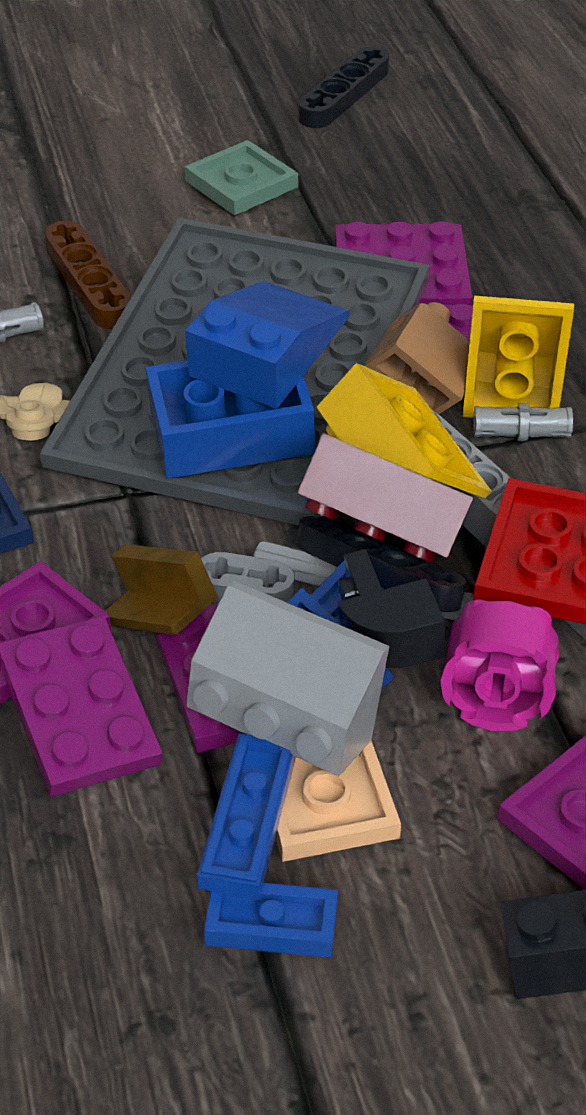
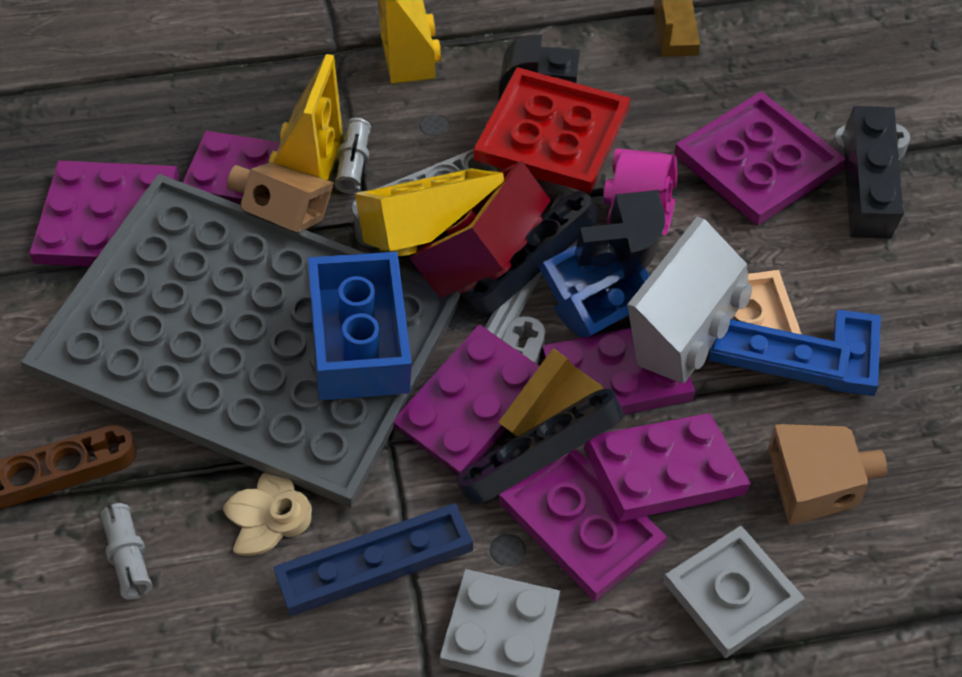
camera: 85 degrees left, 10 degrees up
(70, 861) = (820, 469): none -> medium nougat torso
(98, 585) = (540, 446): none -> black beam
(173, 521) = (465, 399): none -> magenta plate
(260, 340) = (316, 266): blue slope -> none

